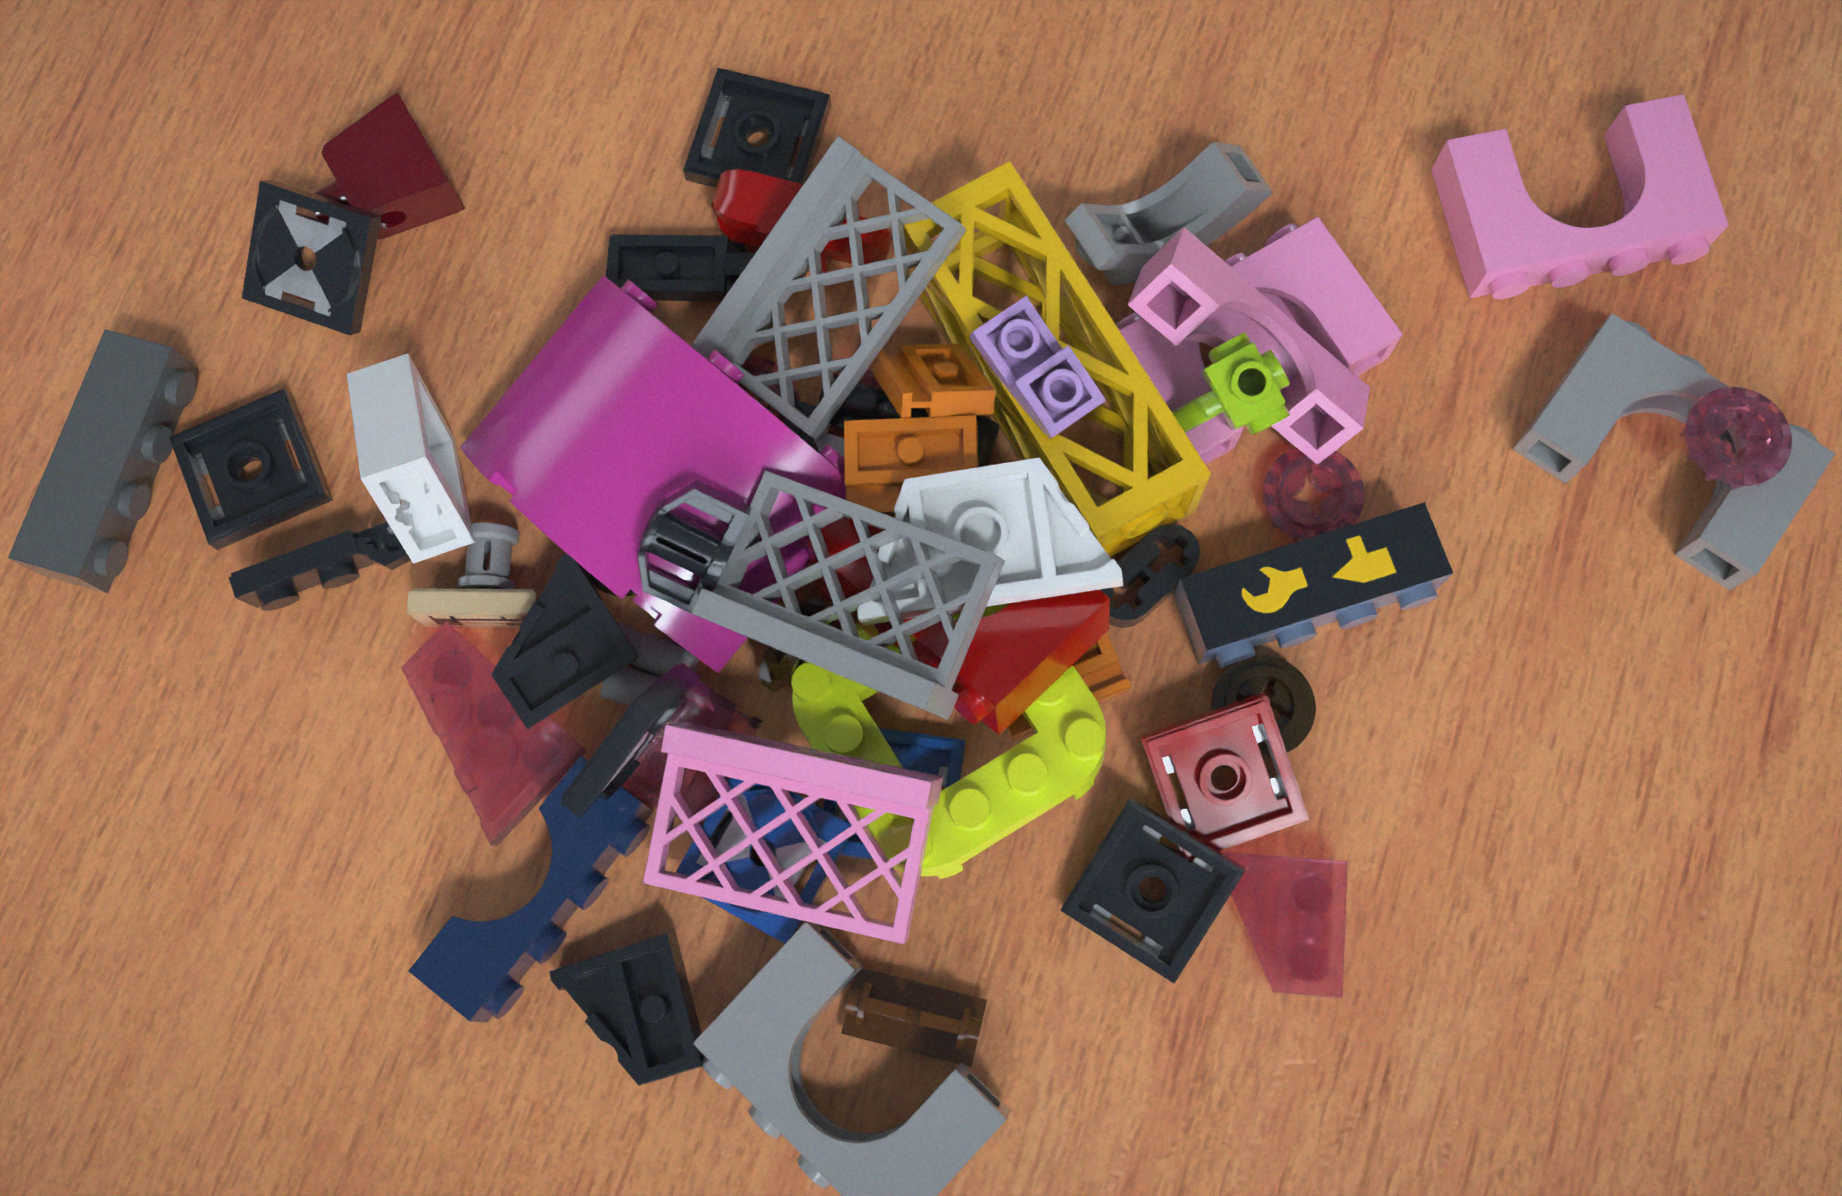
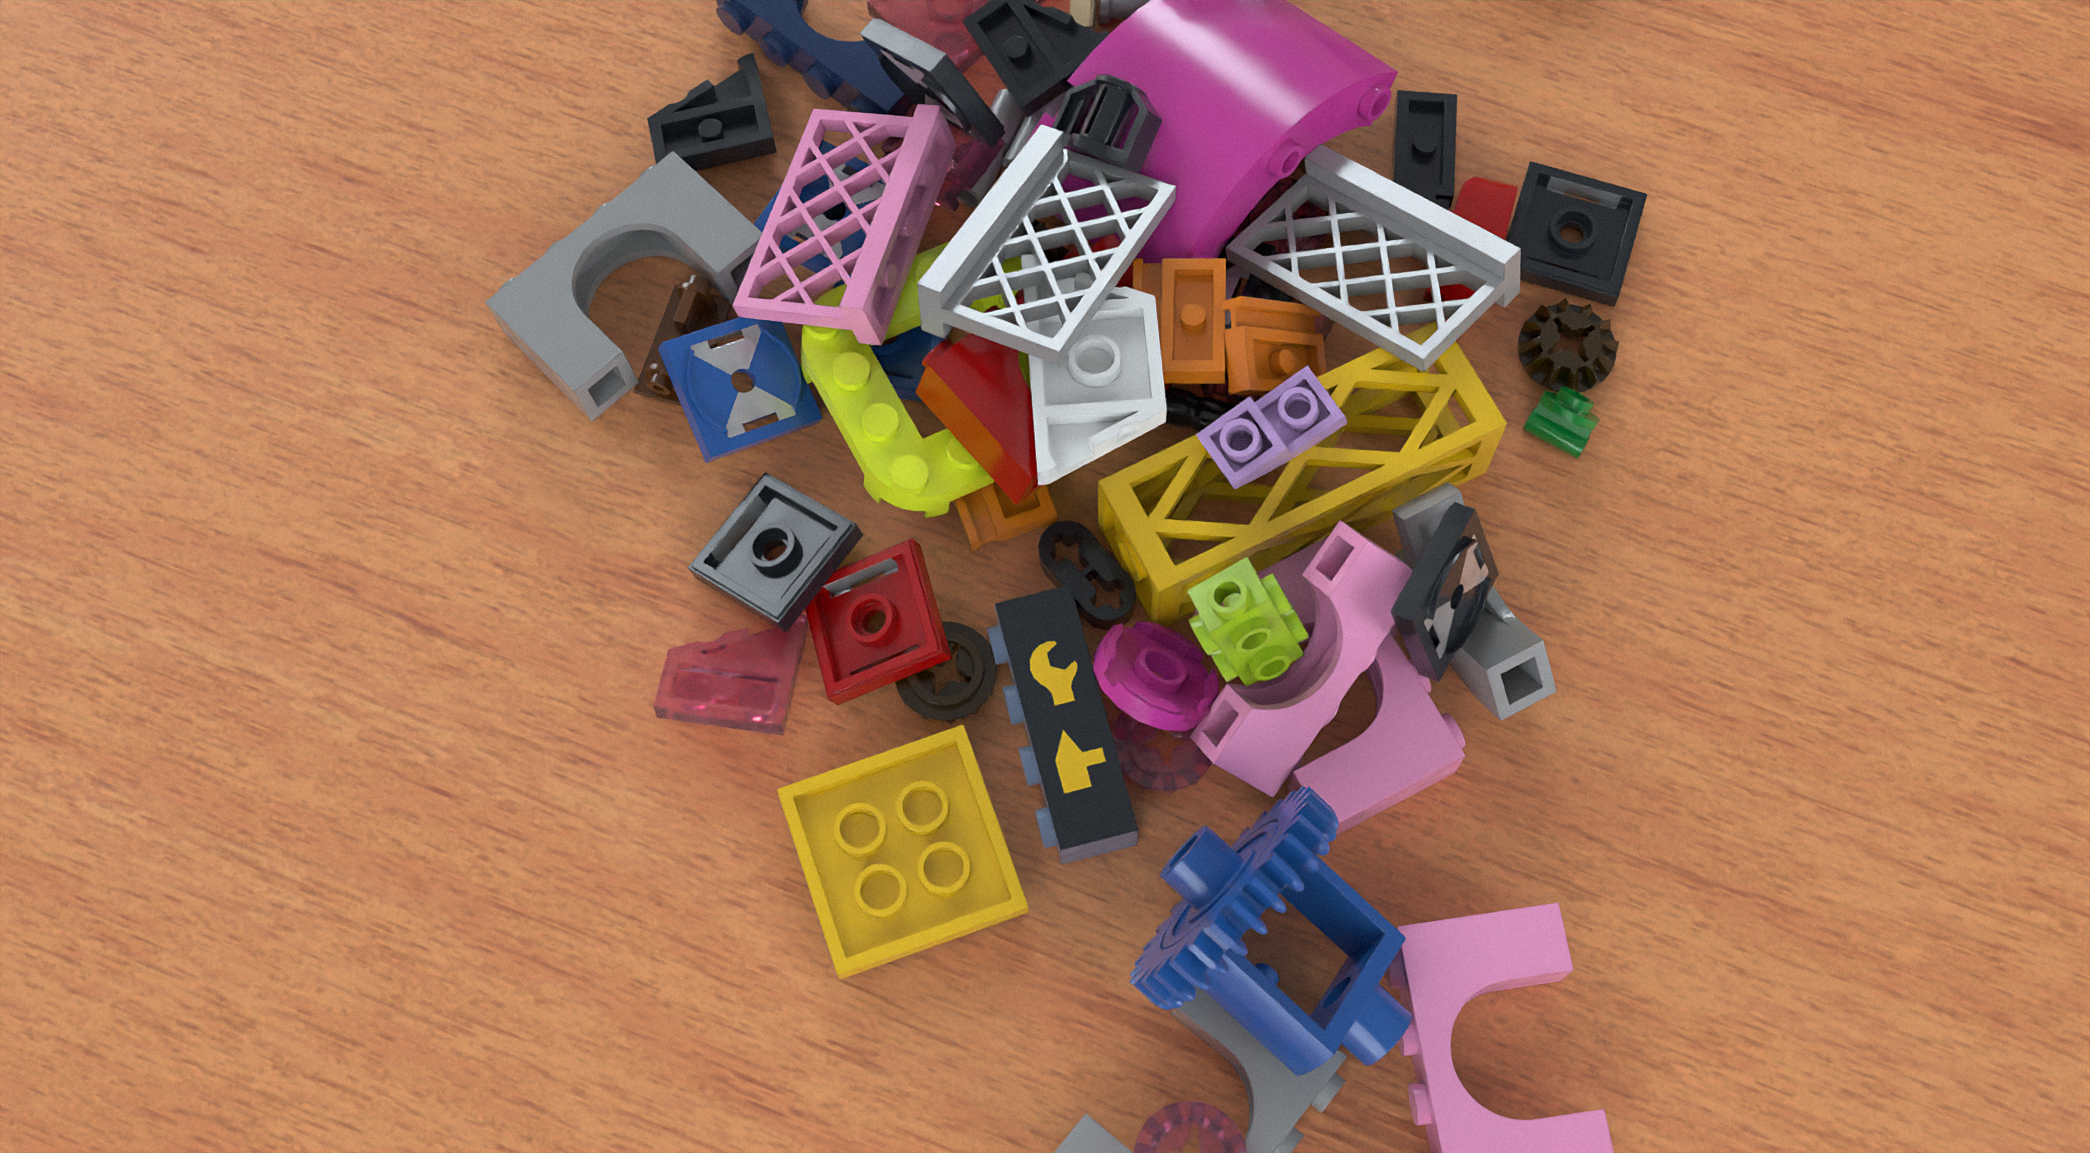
camera: 90 degrees right, 5 degrees down
(905, 139) = (1564, 368): none -> dark brown gear
(957, 145) = (1563, 420): none -> green plate
(979, 976) = (719, 410): none -> blue piece
(1184, 207) = (1446, 592): none -> black piece
(1275, 519) = (1167, 703): none -> dark pink tile
(1454, 735) = (902, 851): none -> yellow plate
(1509, 377) = (1224, 897): none -> blue piece

